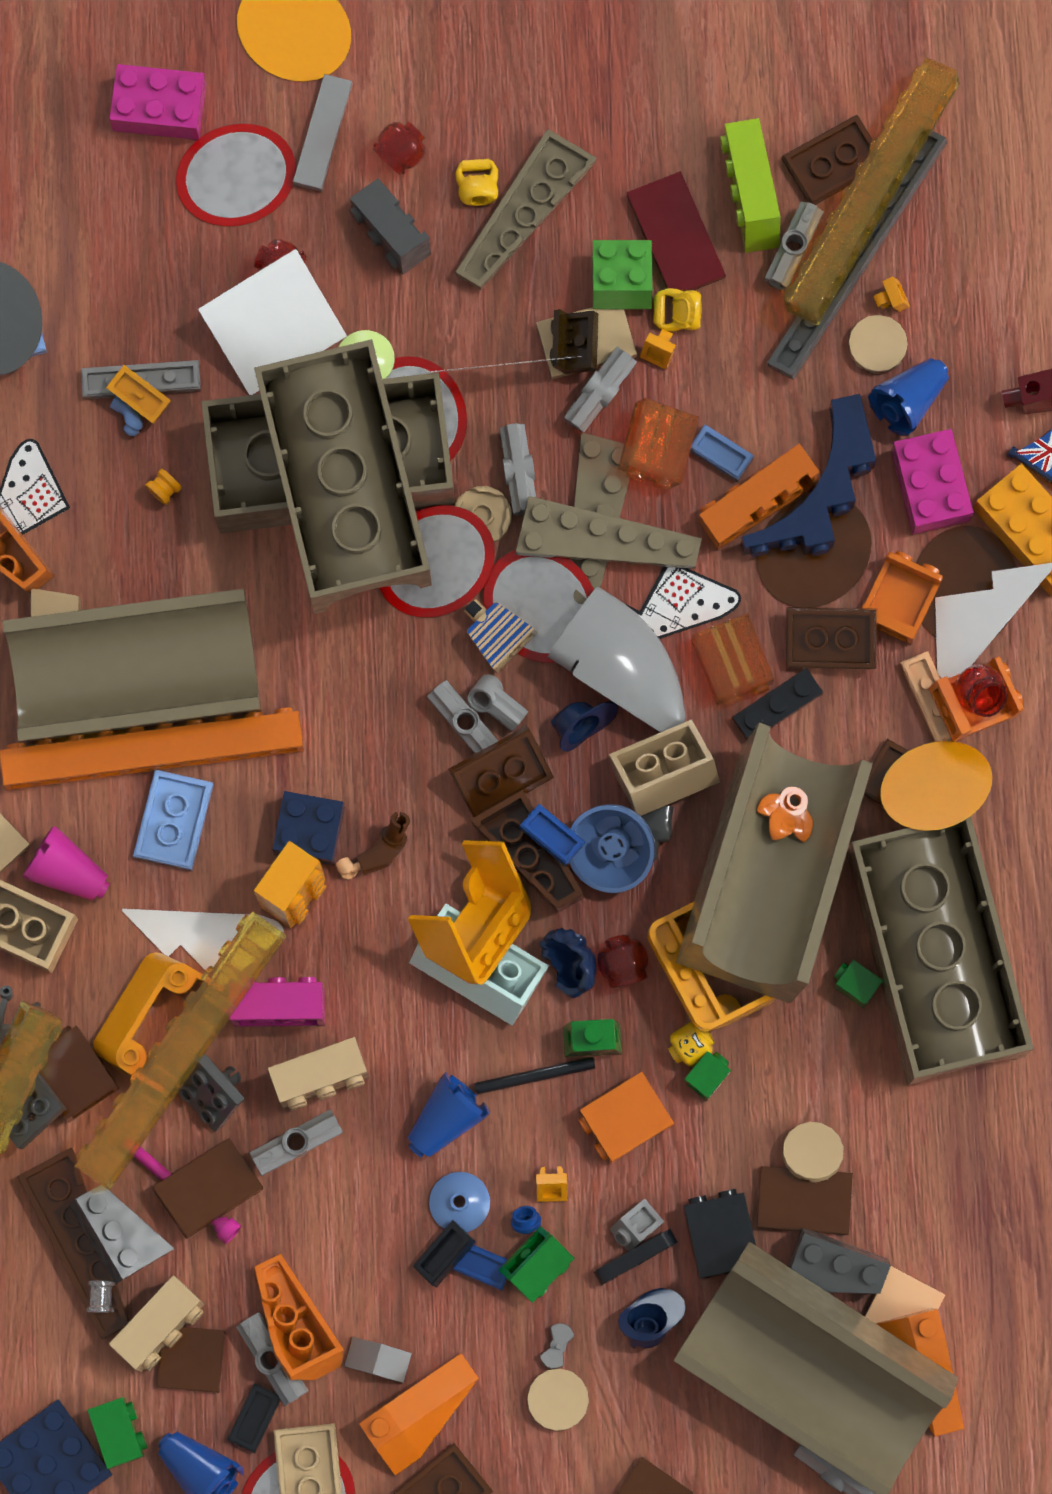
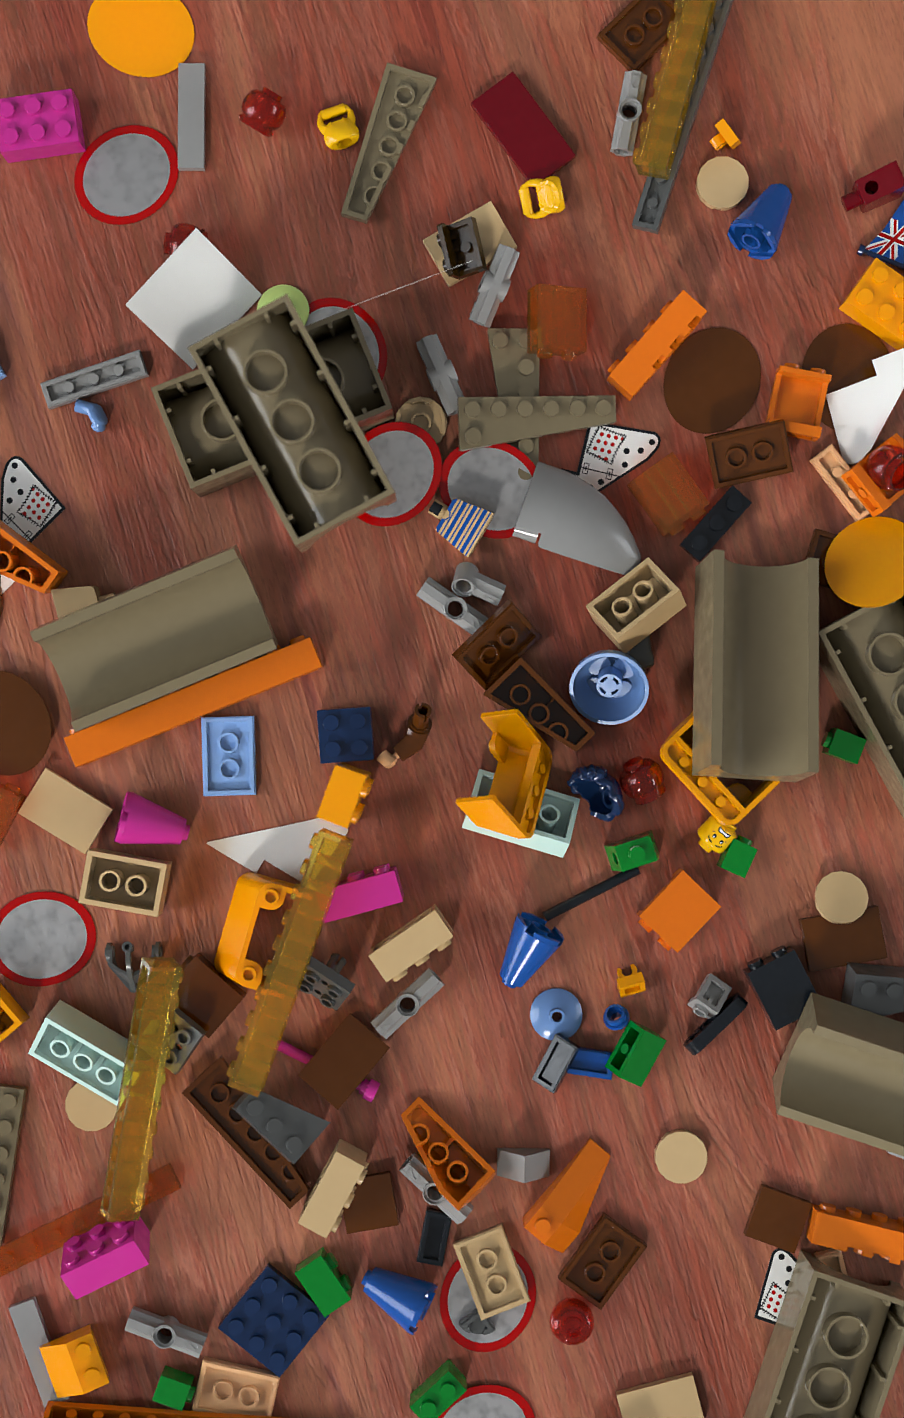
camera: 15 degrees left, 10 degrees up
(100, 1296) = (279, 1178): clear bush -> none
(138, 394) = (95, 394): light orange plate -> none
(163, 486) = (140, 469): light orange wheel -> none
(390, 227) = (273, 186): dark grey wedge -> none
(552, 834) = (556, 690): blue tile -> none
(561, 1336) = (667, 1122): light grey piece -> none
(581, 721) = (551, 582): dark blue piece -> none
(622, 274) = (487, 177): bright green brick -> none
(652, 1317) = (743, 1071): dark blue piece -> none
(658, 349) = (535, 236): light orange tile -> none
(721, 453) = (612, 315): medium blue tile -> none
(752, 185) = (579, 66): lime wedge -> none
(785, 817) = (754, 624): orange plate -> none
(834, 494) = (722, 285): dark blue arch -> none
(932, 481) = (800, 293): dark pink brick -> none

